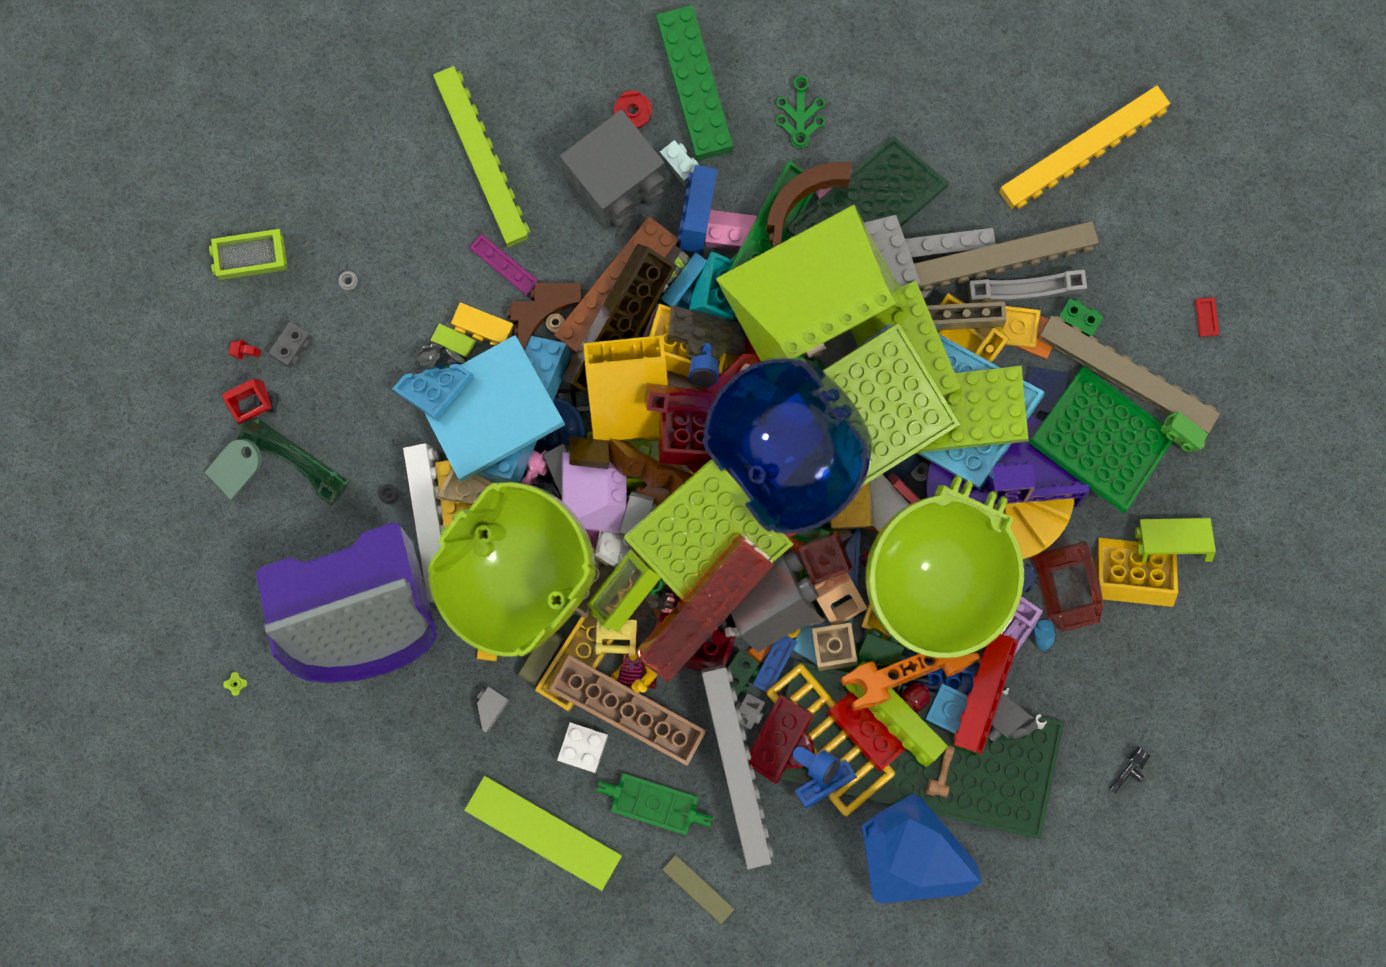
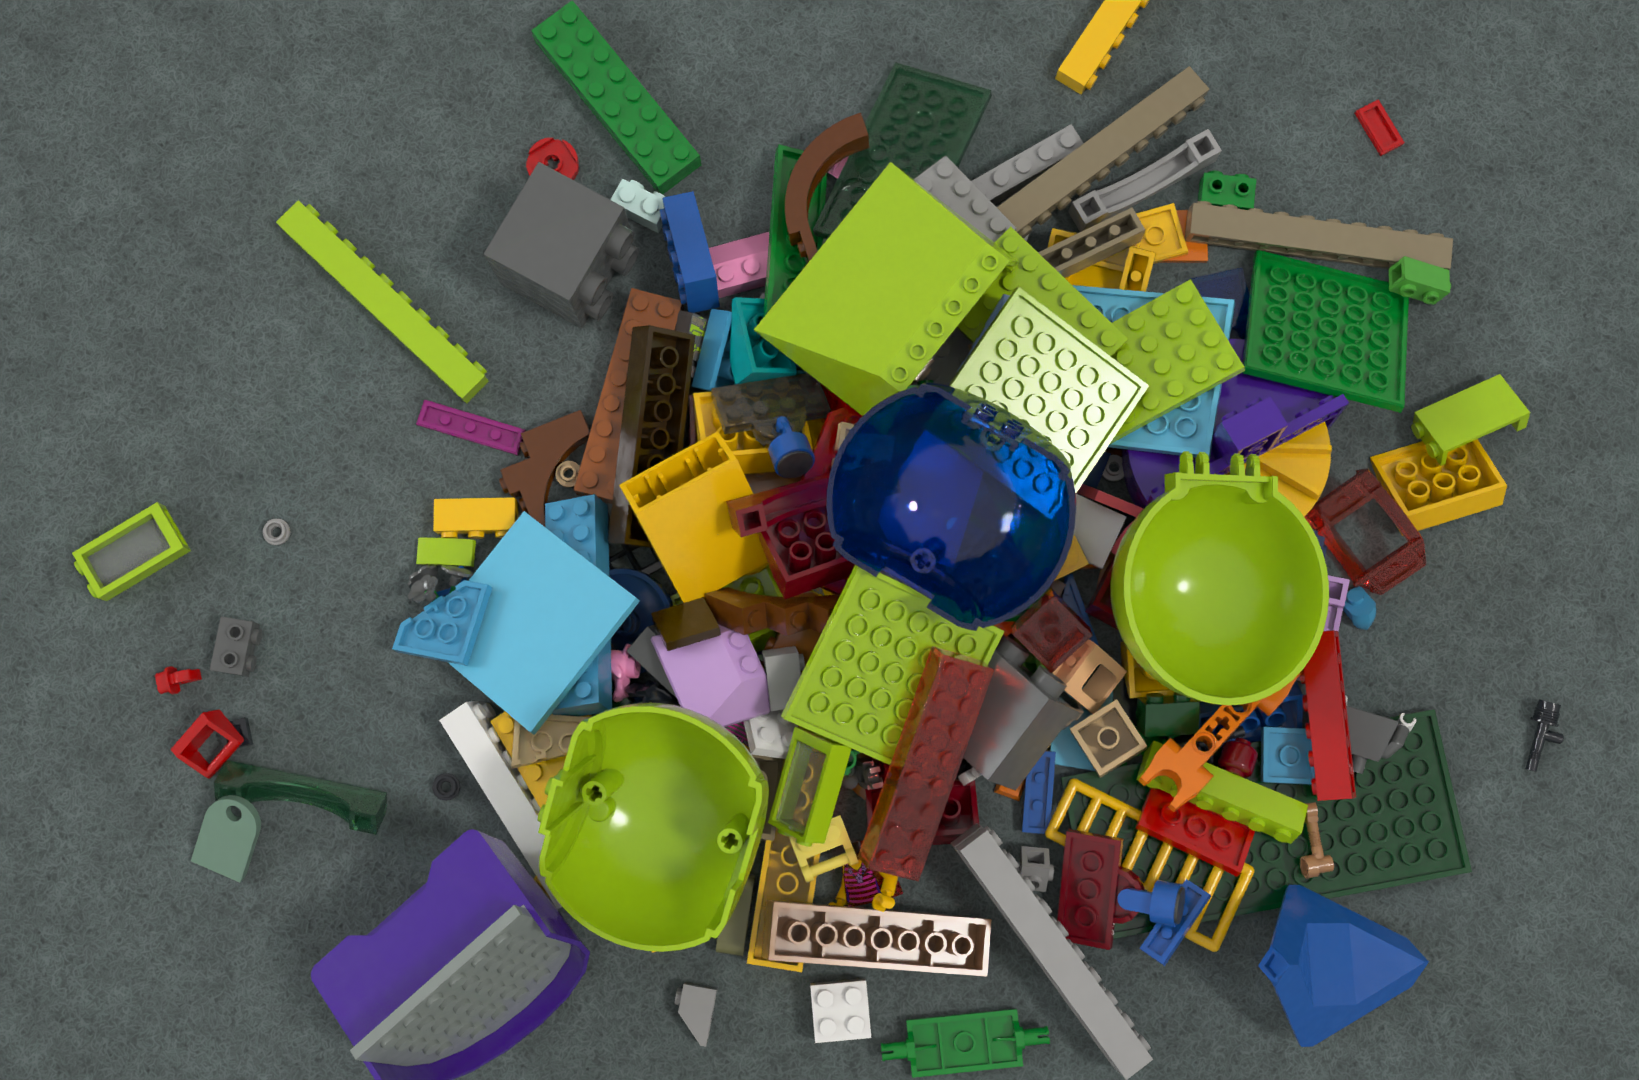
camera: 25 degrees left, 0 degrees up
(741, 670) = (1002, 816): dark green brick -> none
(800, 116) = (767, 85): green plant -> none

